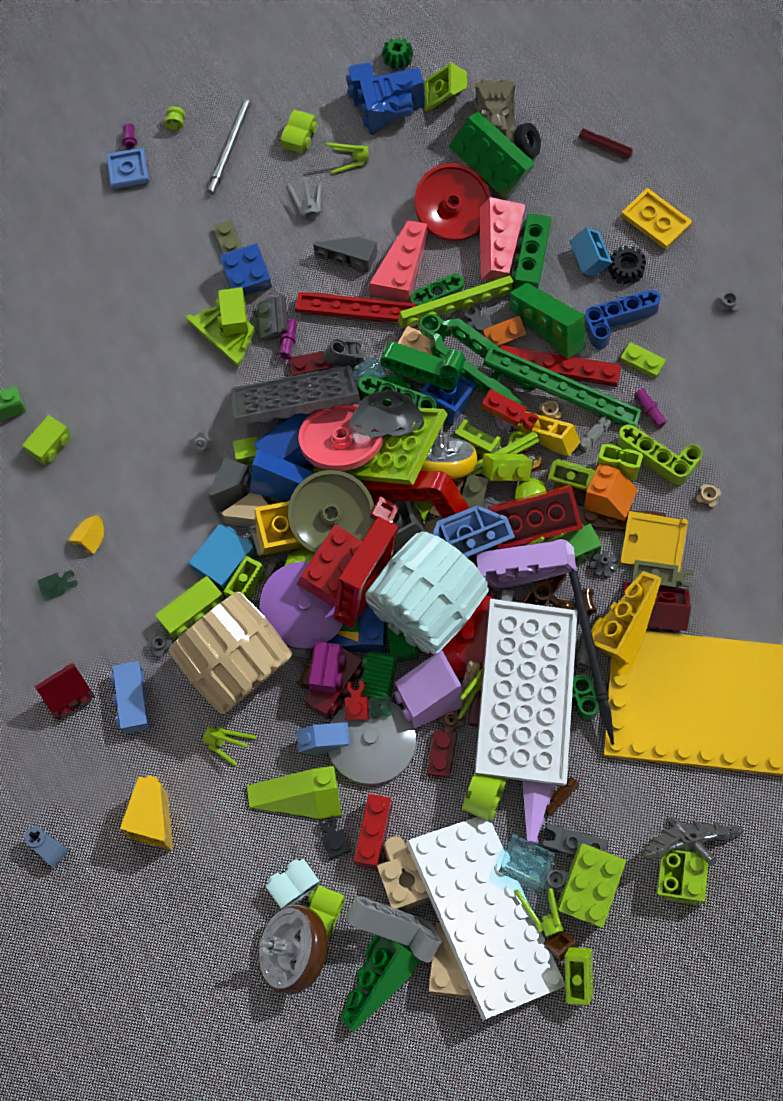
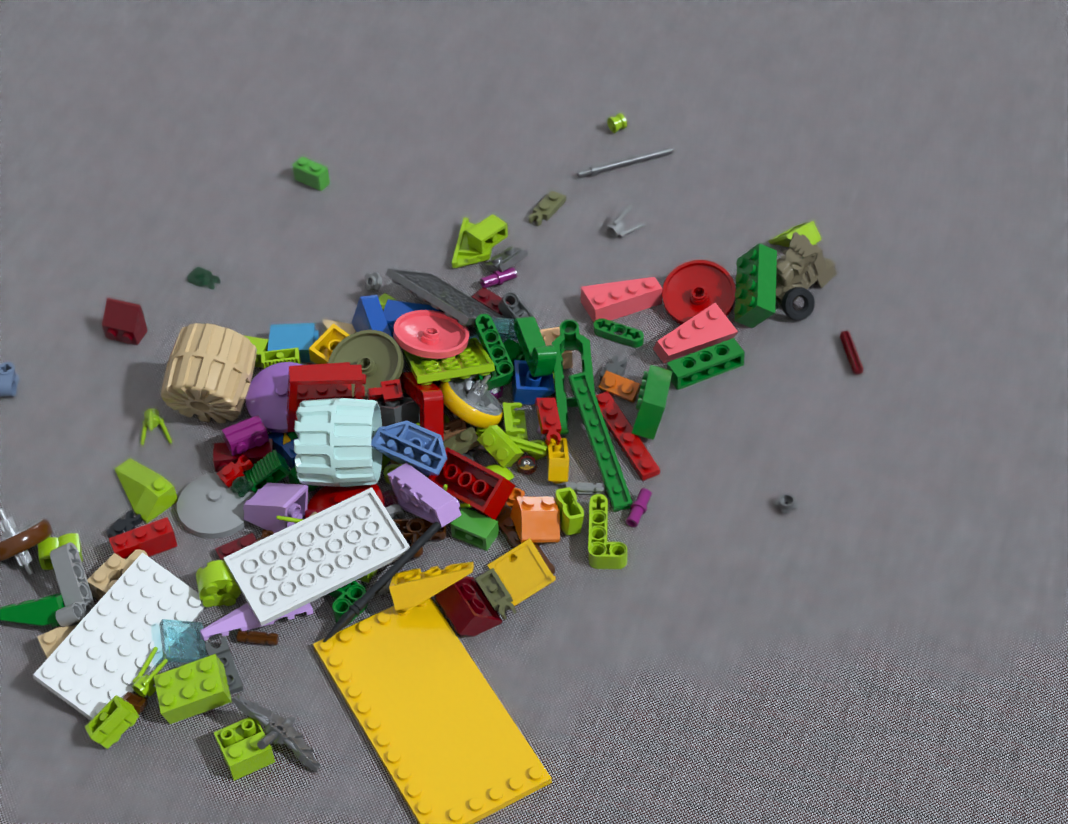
camera: 50 degrees right, 20 degrees down
(47, 440) = (305, 209): lime brick -> none
(89, 534) = (253, 270): yellow brick -> none
(127, 168) = (553, 125): medium blue plate -> none
(129, 139) = (577, 113): magenta pin -> none
(130, 697) = (146, 360): medium blue brick -> none
(149, 814) = (66, 413): yellow slope -> none
(229, 485) = (342, 305): dark grey slope -> none
(246, 269) = (529, 223): blue brick -> none
(292, 884) = (69, 520): light aqua brick -> none
(299, 131) = (673, 186): lime brick -> none
(322, 738) = (191, 469): medium blue slope -> none
(348, 251) = (602, 266): dark grey slope -> none
(350, 307) = (559, 296): red plate -> none
(360, 154) = (689, 226): lime plant -> none
(384, 96) = (749, 208): blue brick -> none
(385, 418) = (463, 342): dark grey piece -> none
(397, 53) = (797, 196): green gear -> none
(456, 301) = (618, 343): lime plate -> none
(550, 405) = (579, 450): tan plate -> none
(570, 473) = (529, 483): lime brick -> none
(588, 599) = (434, 559): reddish brown bush -> none
(590, 252) = (738, 393): dark azure brick -> none
(604, 564) = (478, 556): dark grey plant -> none
(627, 274) = (753, 415): black tyre -> none
(643, 360) = (679, 481): lime plate -> none
(645, 305) = (703, 440): blue beam -> none
(656, 218) = (814, 417): yellow plate -> none
(708, 489) = (596, 582): tan plate -> none

